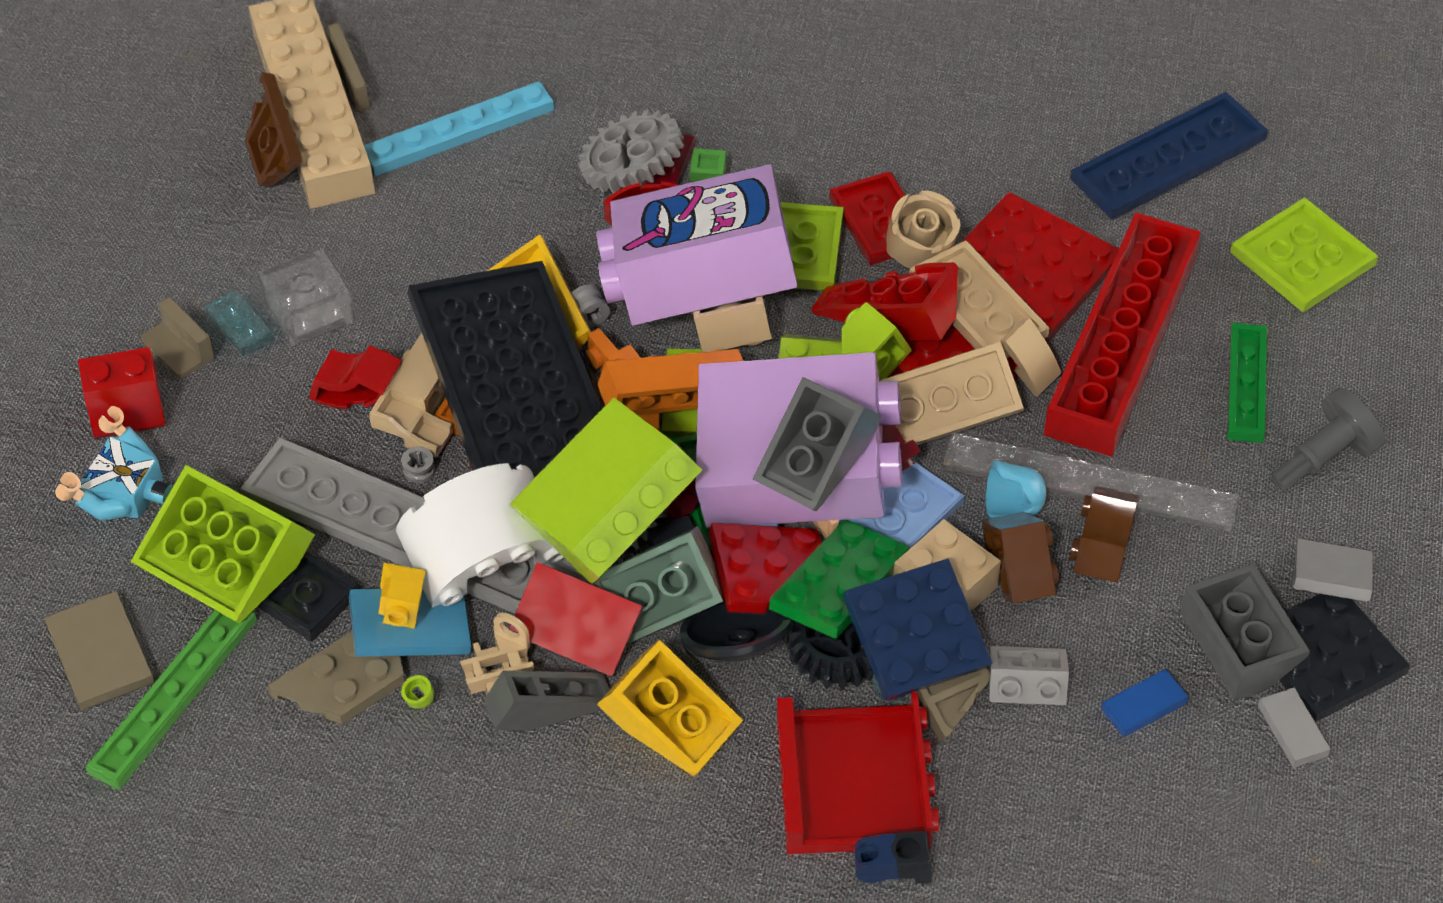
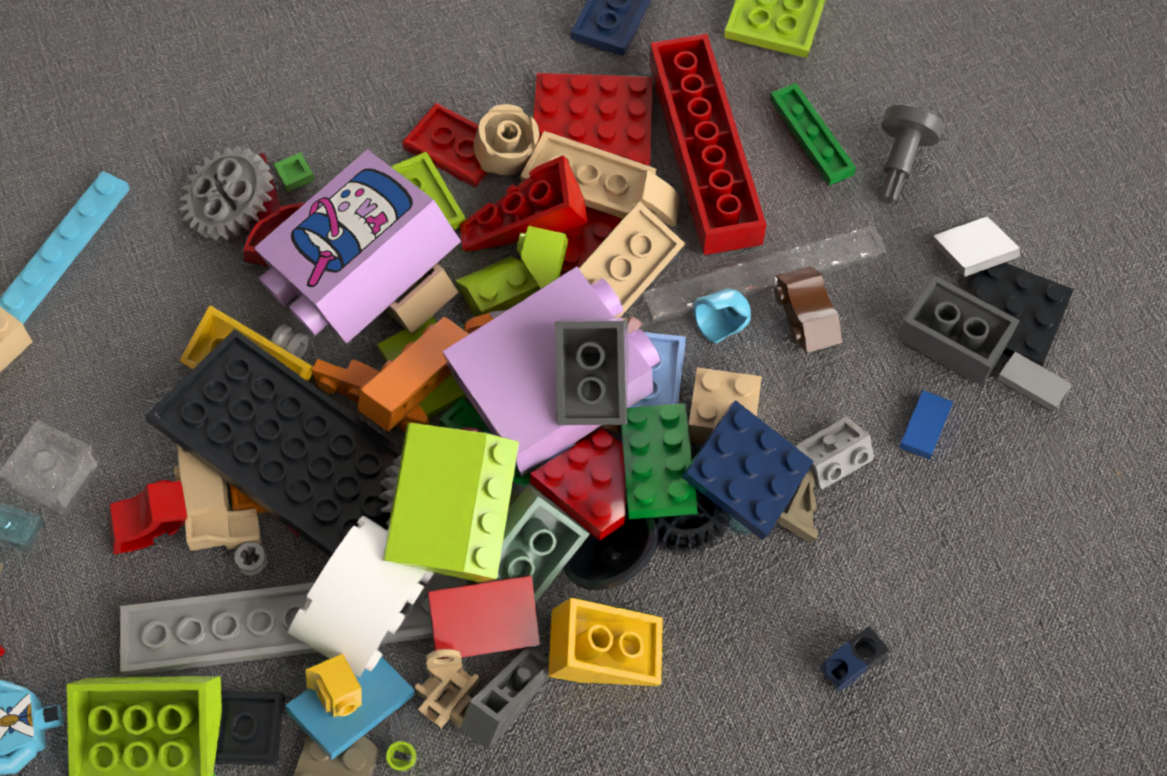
camera: 35 degrees left, 10 degrees up
(853, 775) = (776, 611): red panel -> none
(1024, 553) = (769, 355): reddish brown brick -> none

